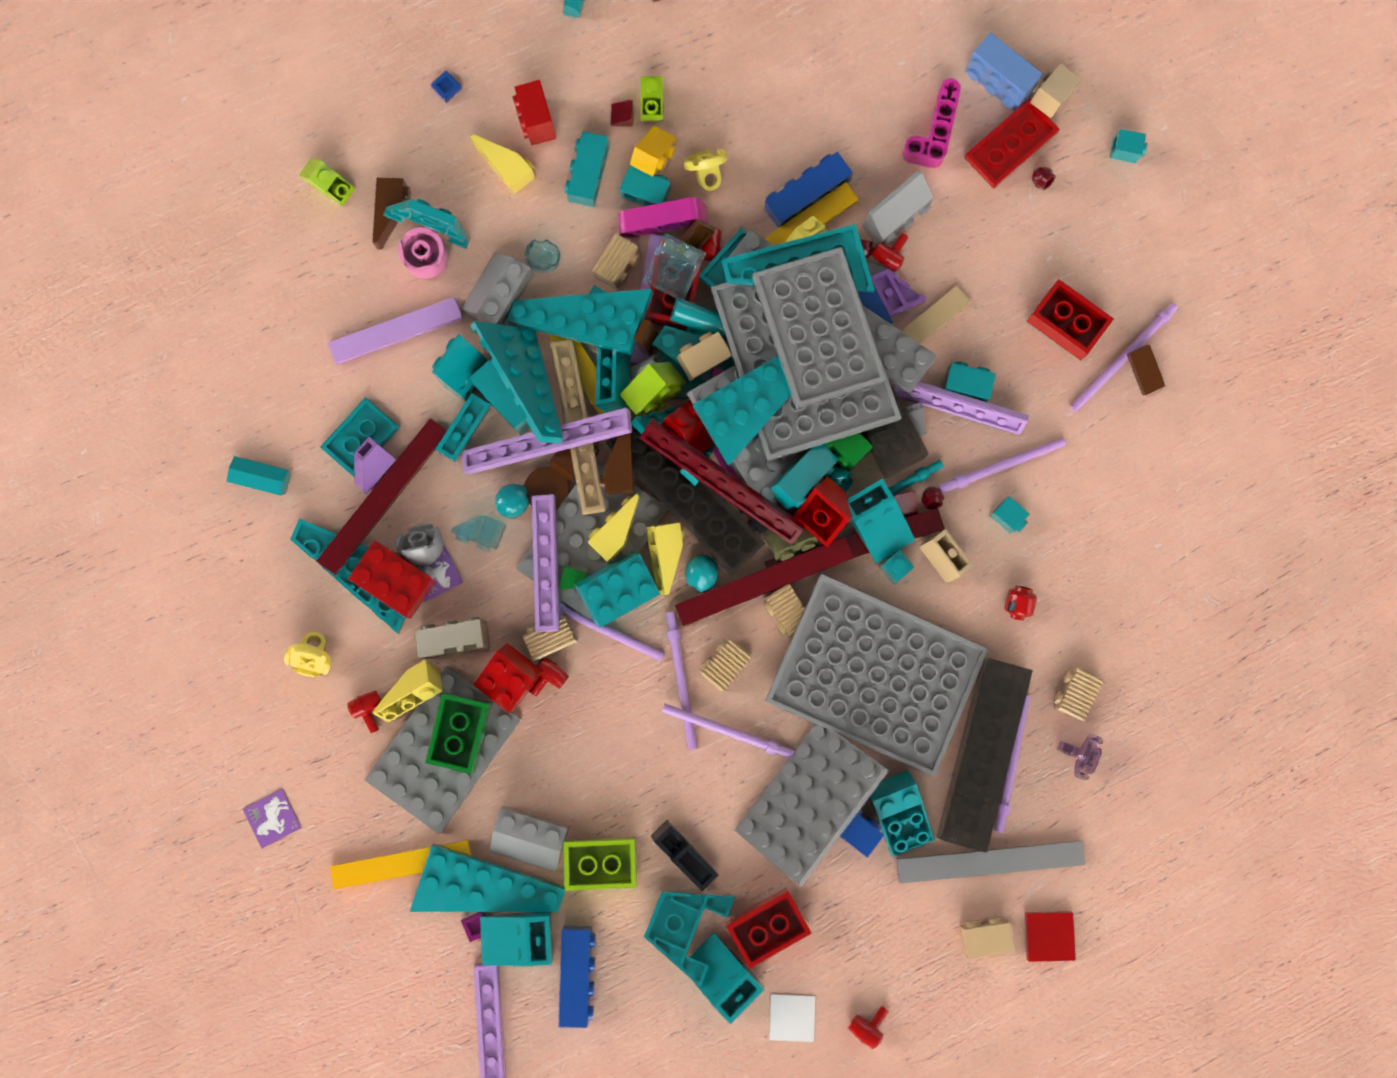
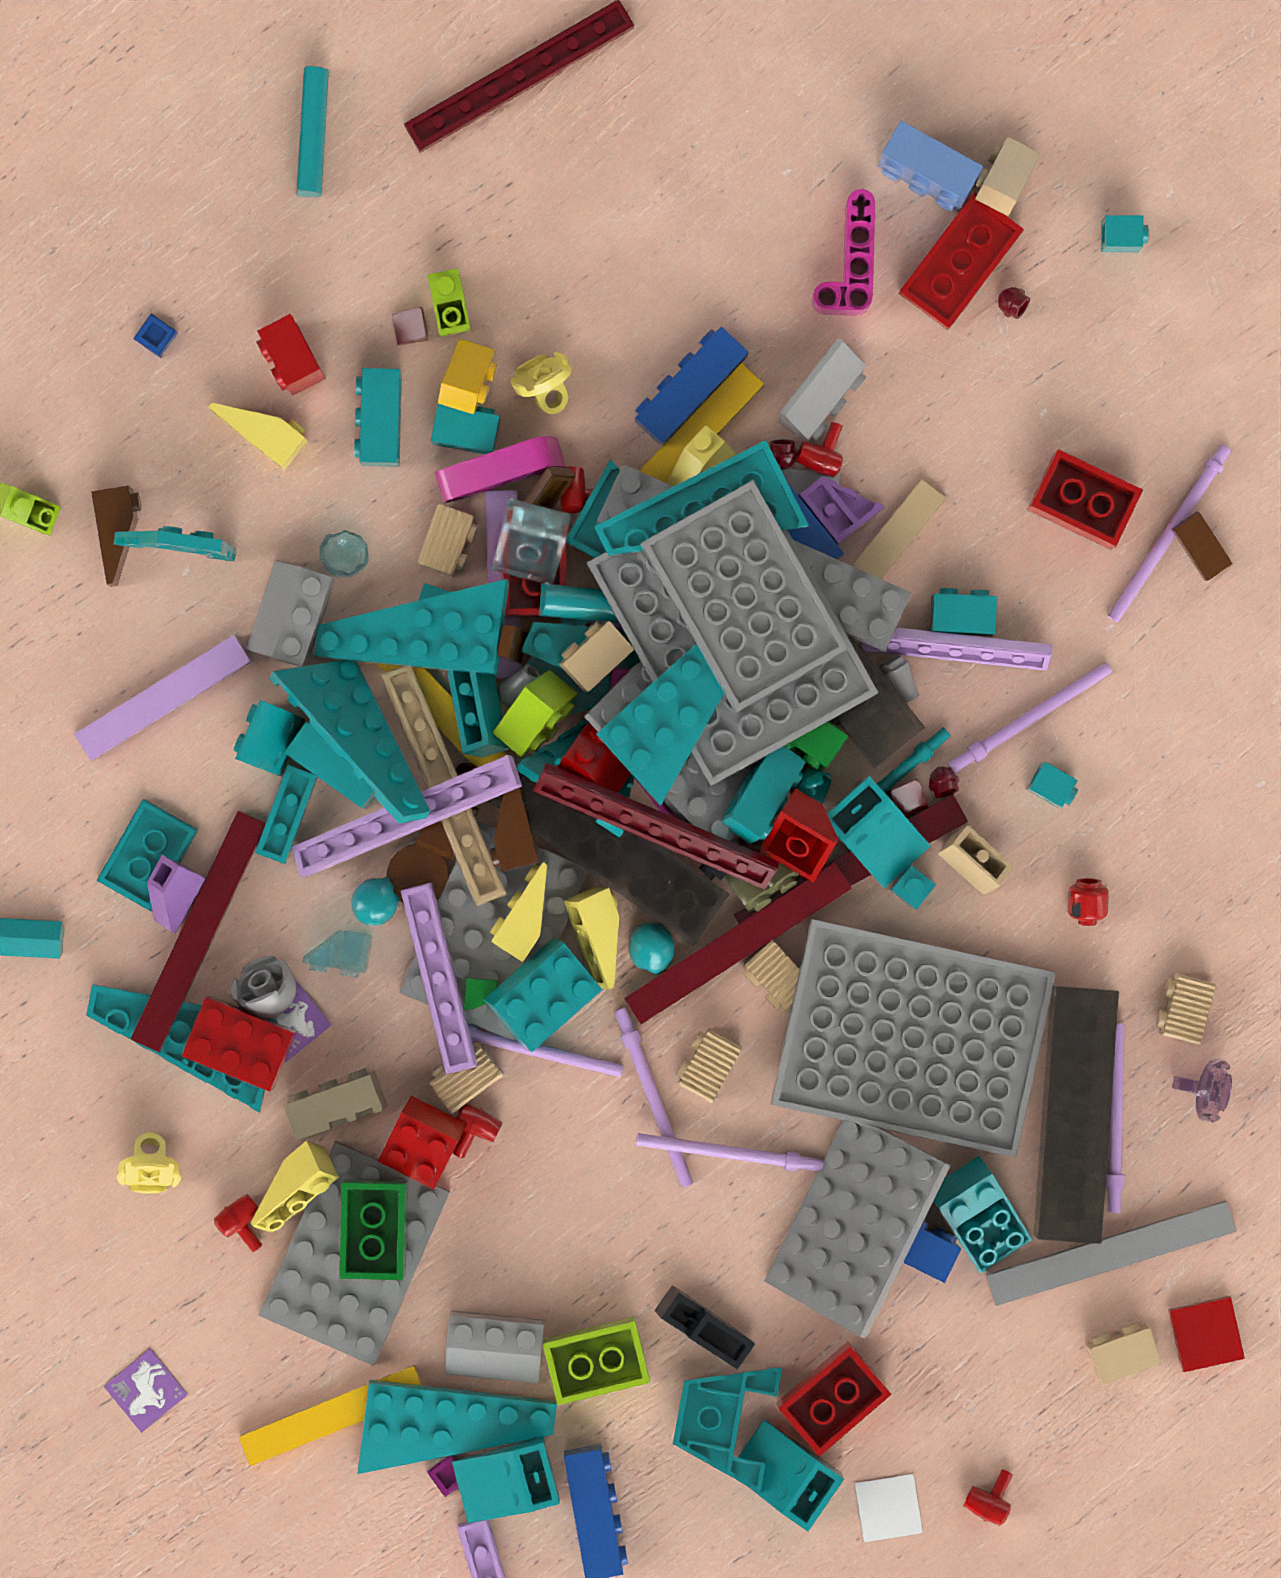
camera: 15 degrees left, 5 degrees up
(412, 256) = (162, 578): bright pink brick -> none

